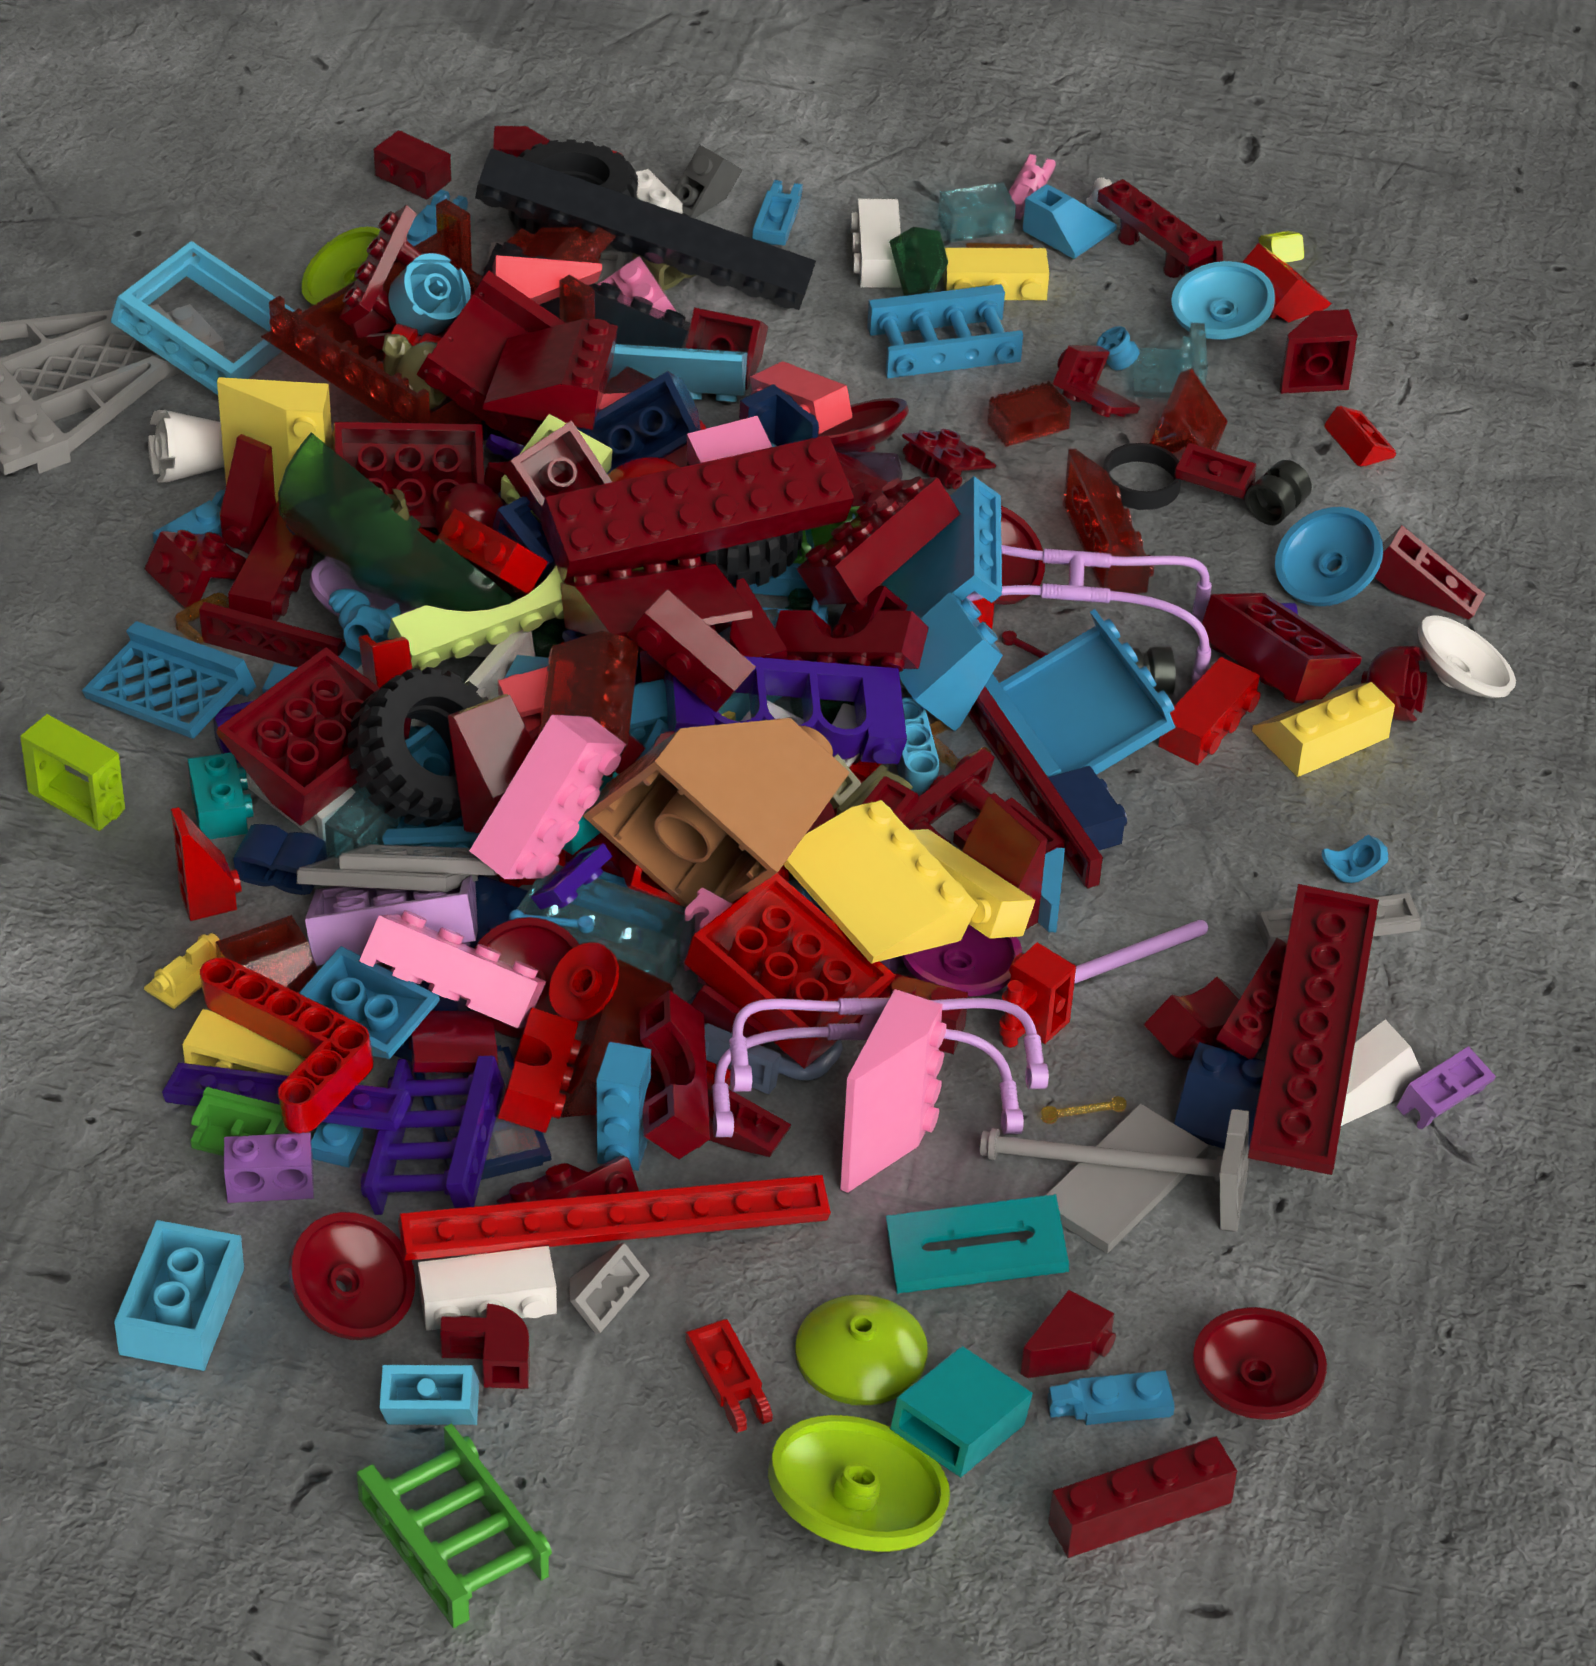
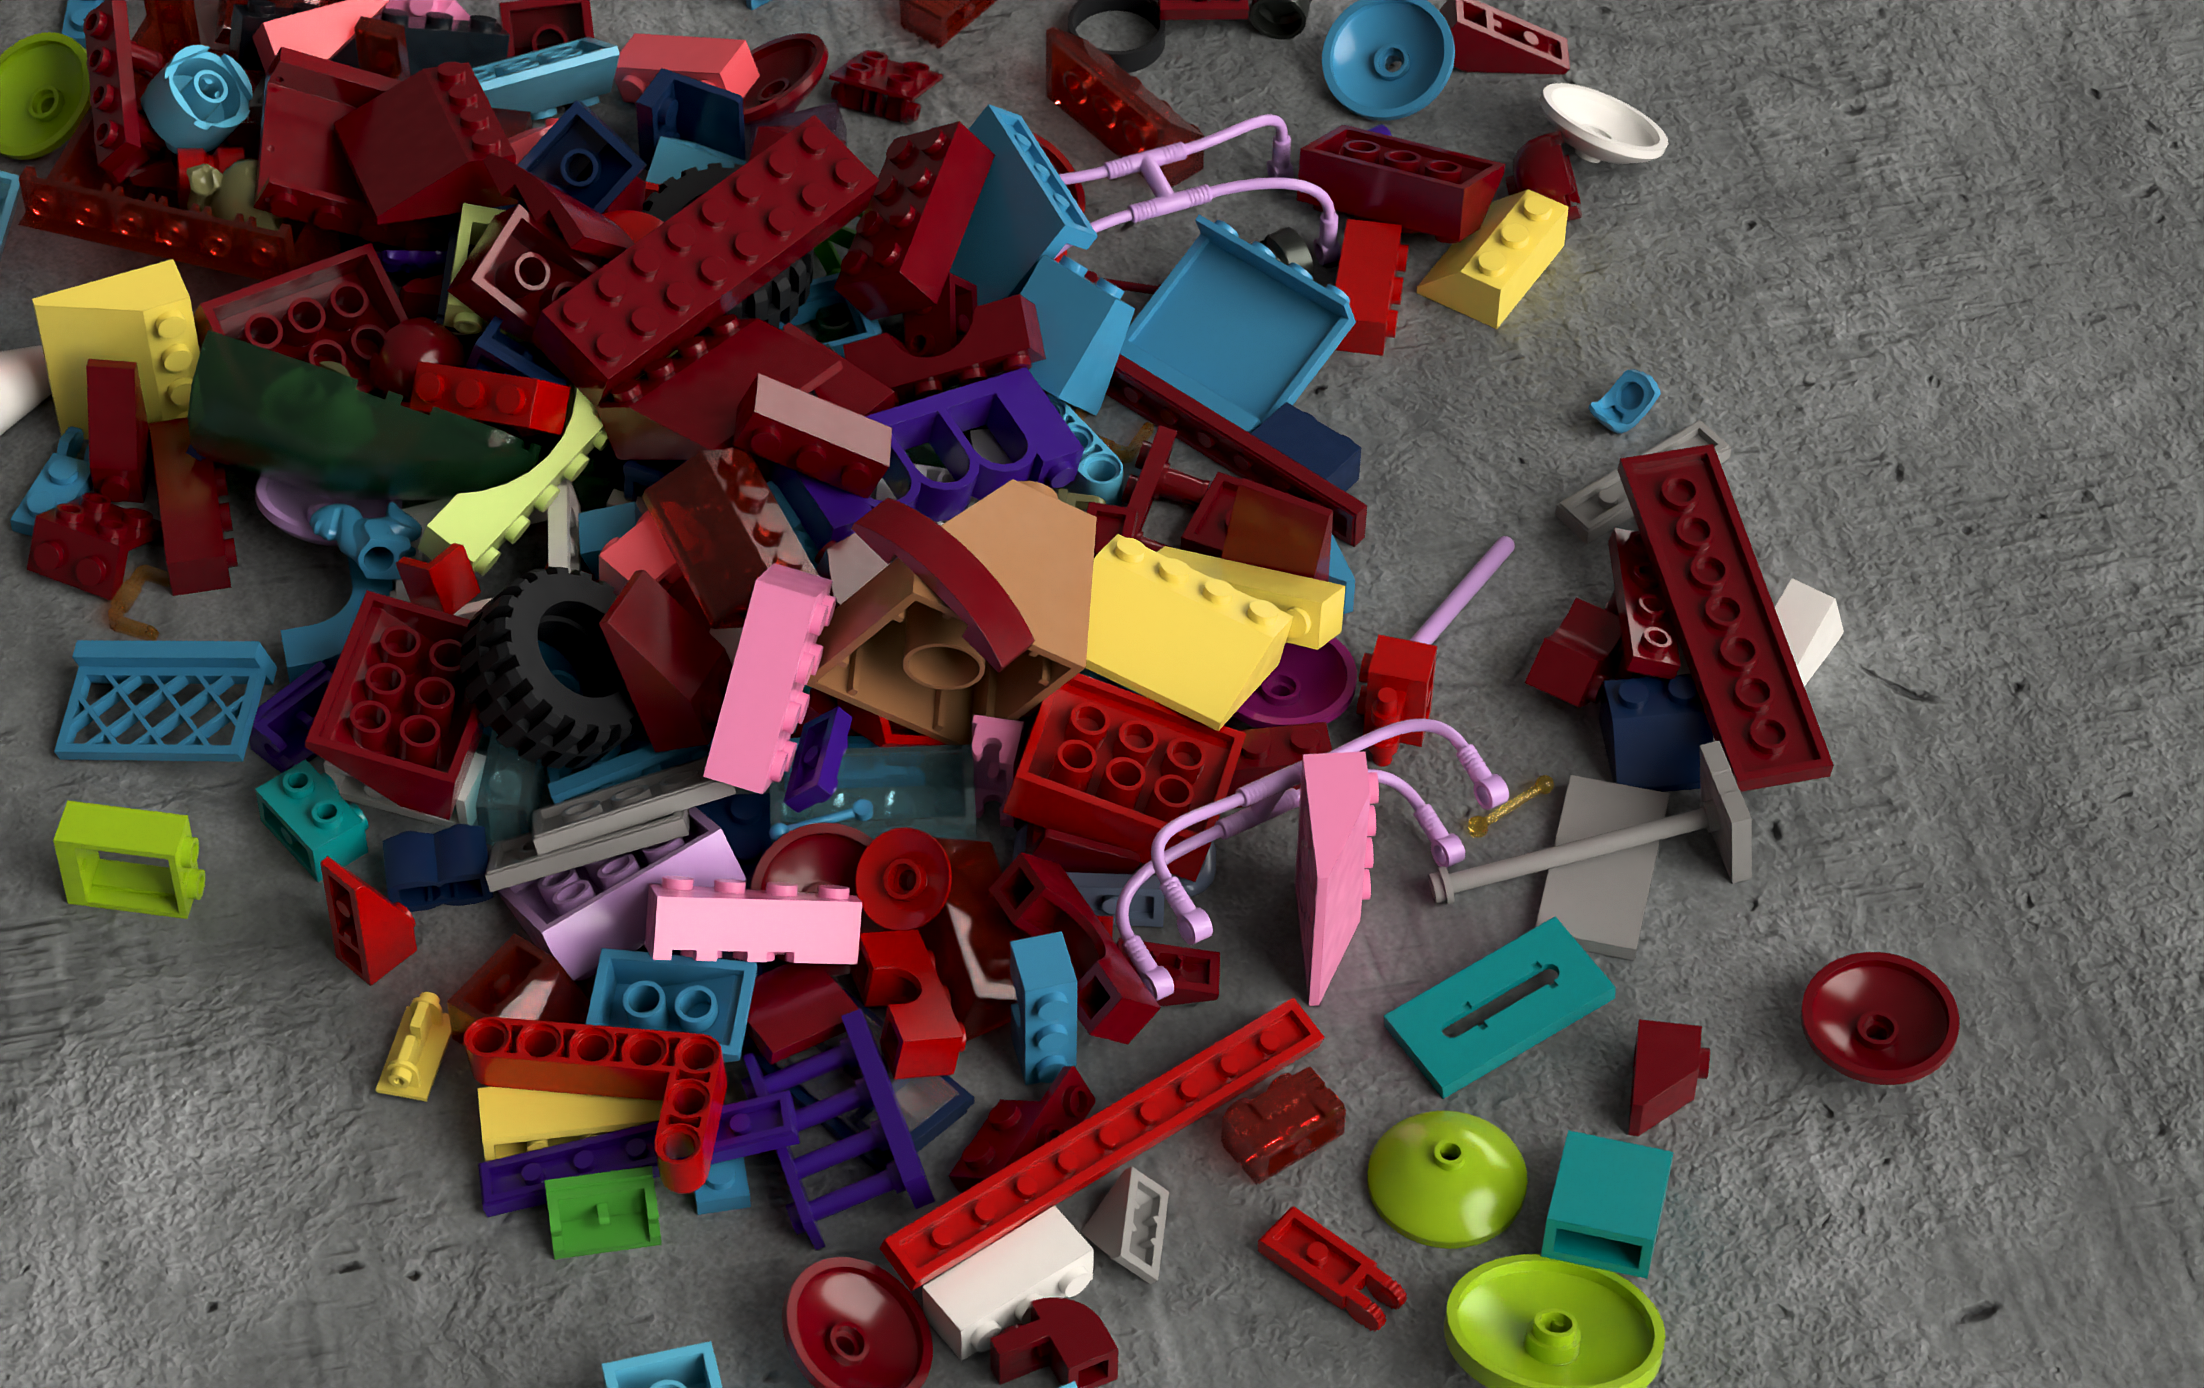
camera: 25 degrees left, 5 degrees up
(263, 636) = (248, 602): dark red fence -> none
(268, 1167) = (672, 1246): medium lavender brick -> none
(607, 444) = (567, 217): none -> dark red slope
(693, 764) = (953, 575): none -> dark red slope
(726, 440) = (692, 168): bright pink brick -> none
(758, 1260) = (1282, 1124): none -> clear red brick
(1113, 1398) = (1745, 1120): dark azure hinge -> none
(1142, 1496) = (1847, 1218): dark red brick -> none
(1445, 1086) = (1876, 629): medium lavender hinge -> none

